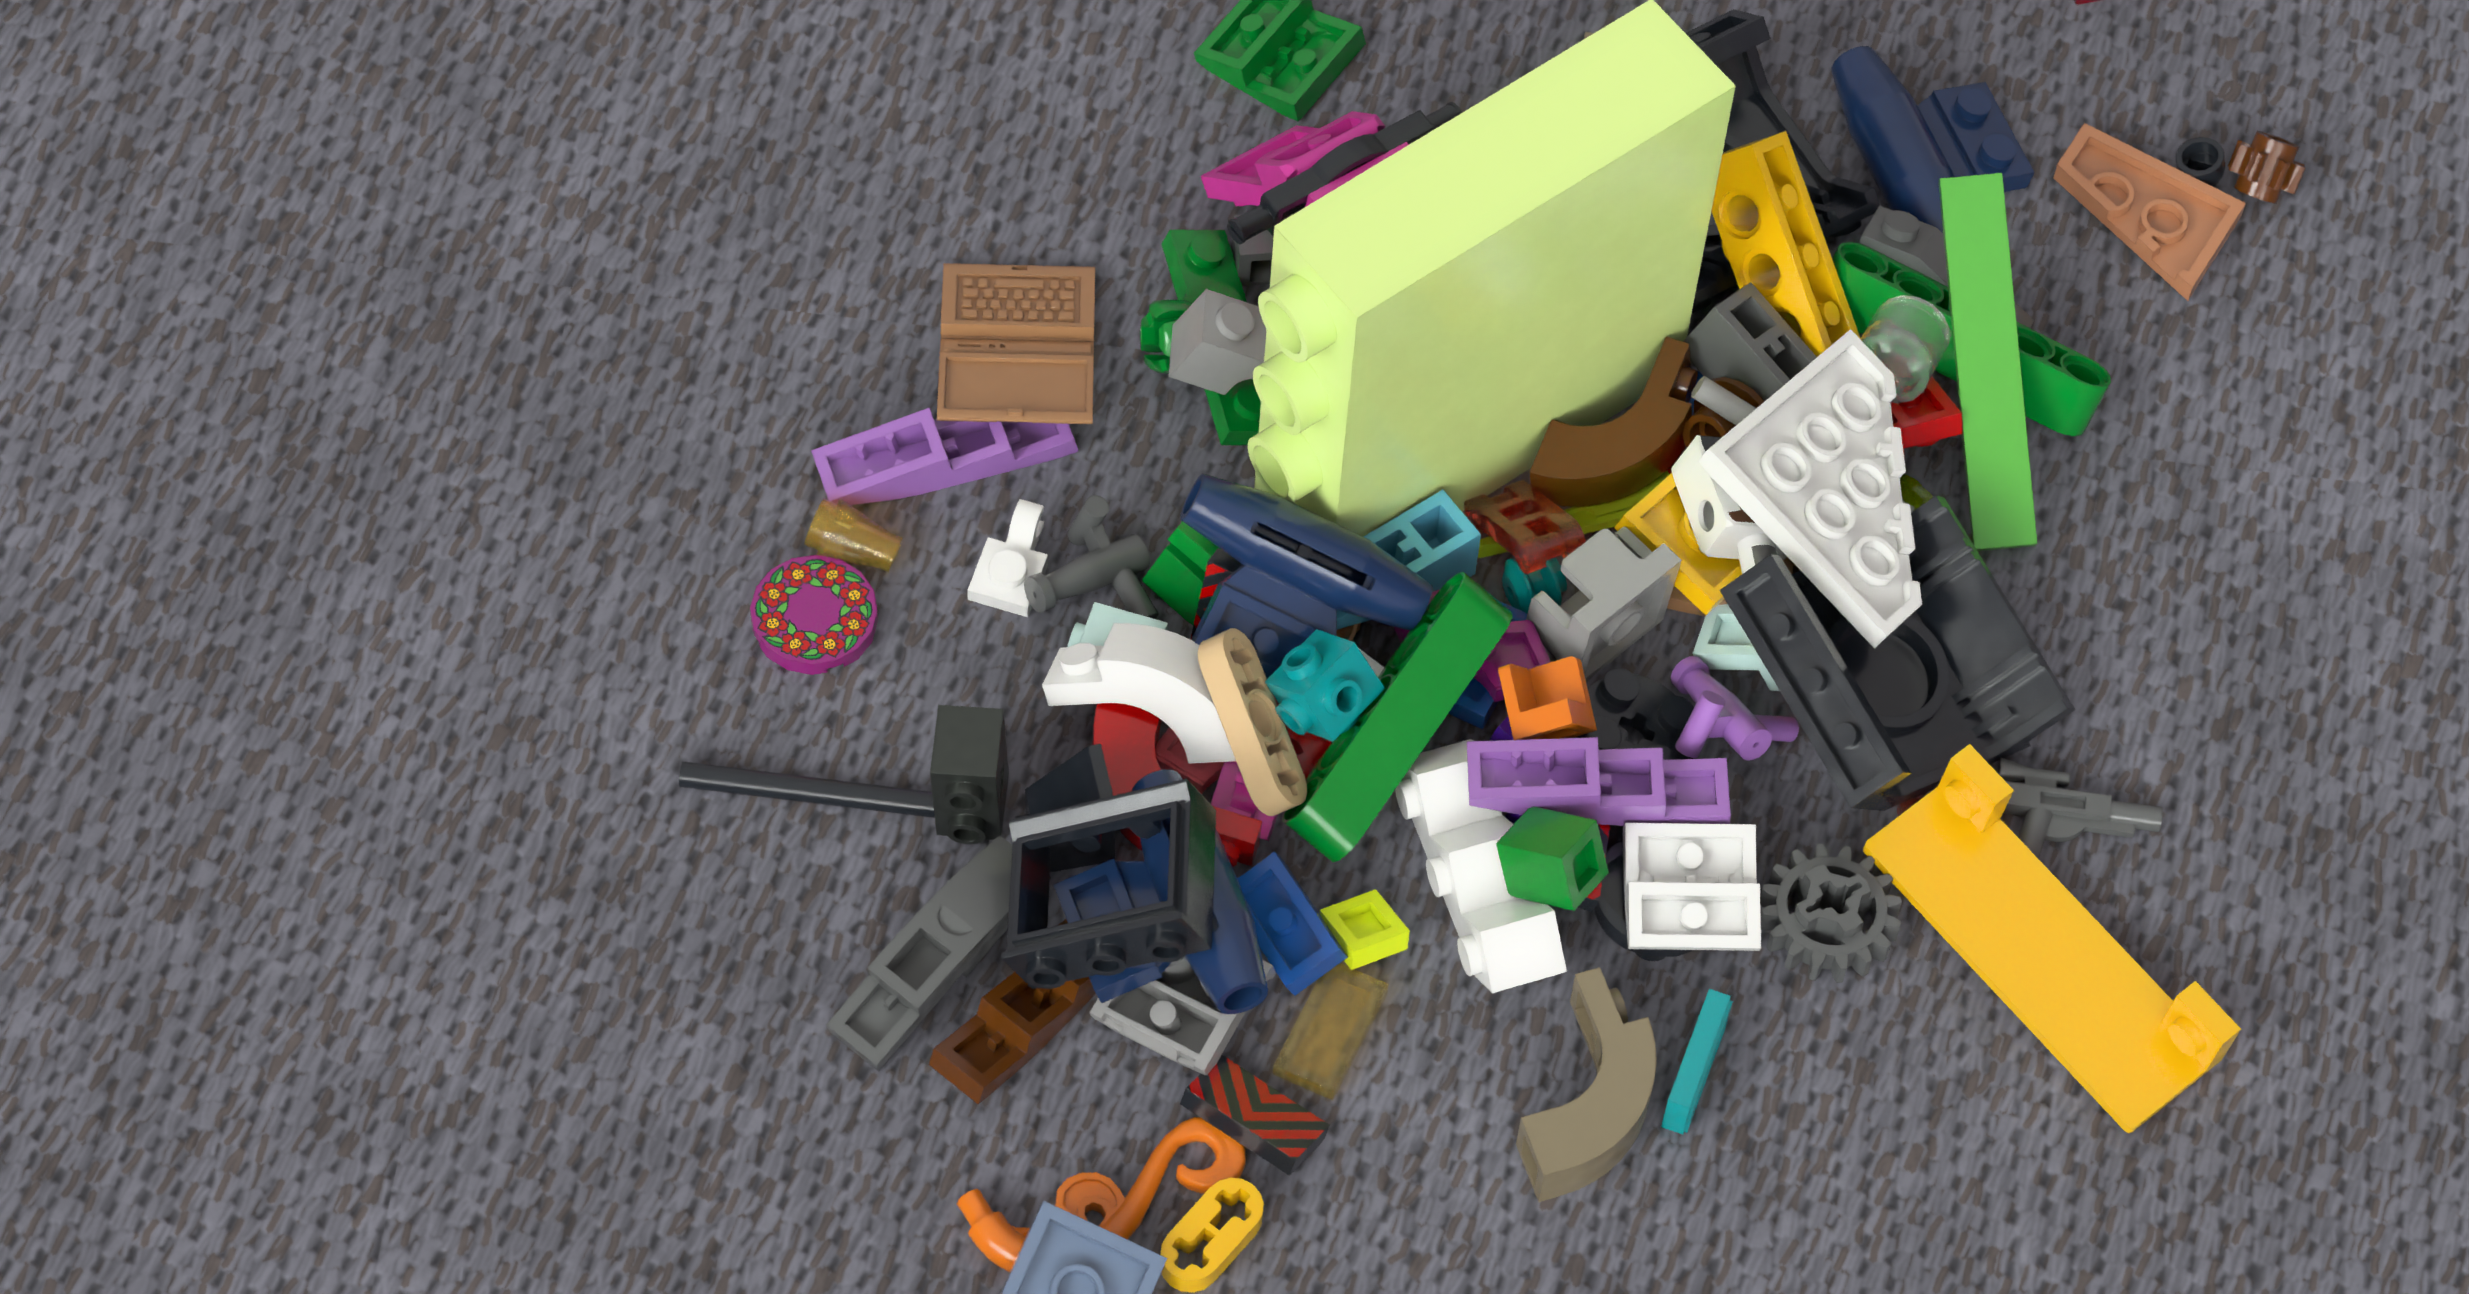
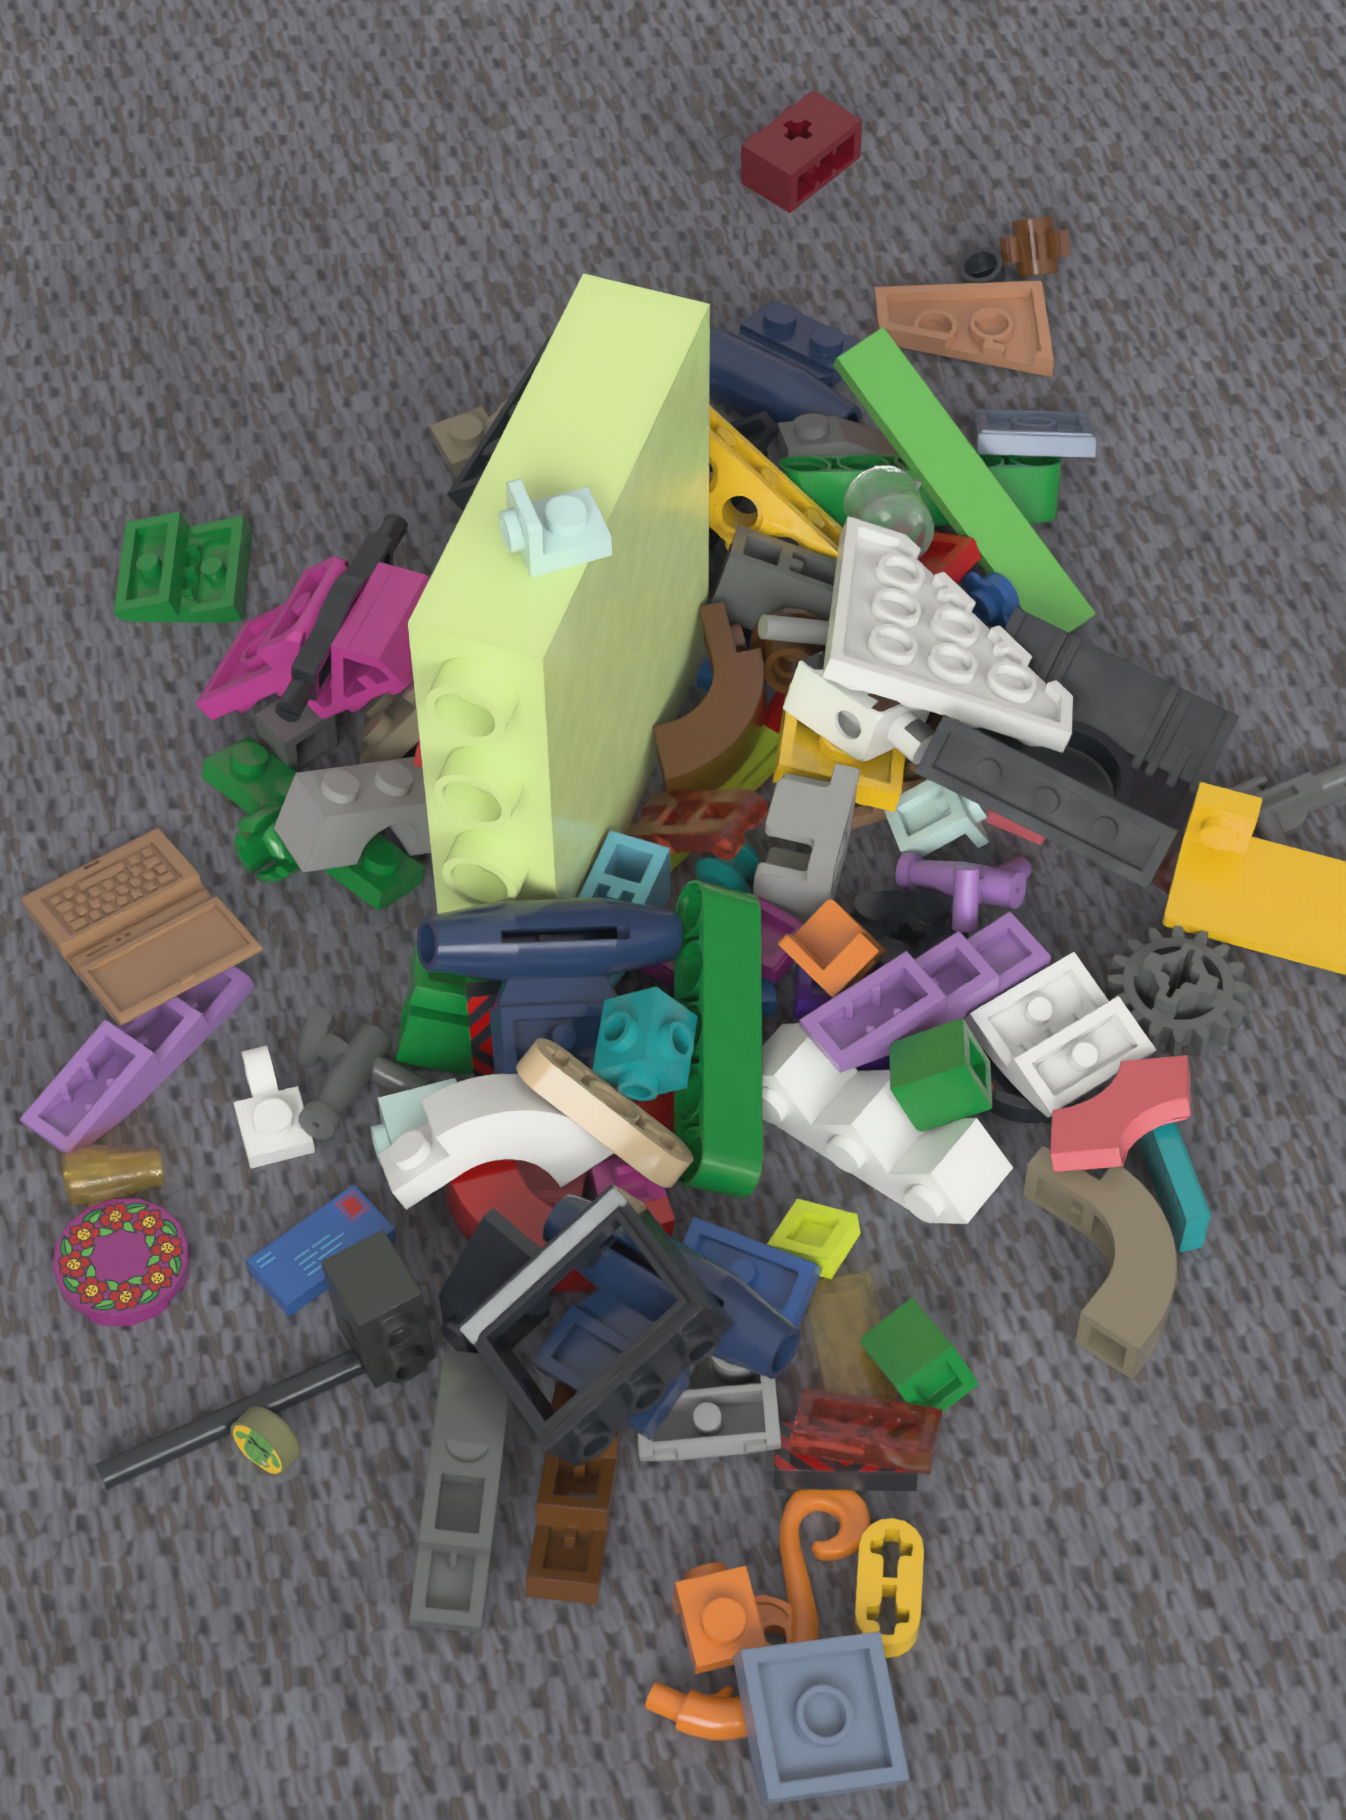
camera: 30 degrees left, 5 degrees down
(820, 822) = (266, 1440): none -> olive tile
(987, 686) = (291, 1264): none -> blue tile
(1058, 1167) = (717, 1614): none -> orange bracket
(1282, 1104) = (866, 1431): none -> clear red tile
(1368, 1077) = (918, 1358): none -> green panel
(1443, 213) = (553, 530): none -> light aqua bracket
(1705, 979) = (1106, 1126): none -> coral tile
(1947, 475) = (993, 597): none -> blue plate
(2112, 345) = (1033, 433): none -> sand blue tile

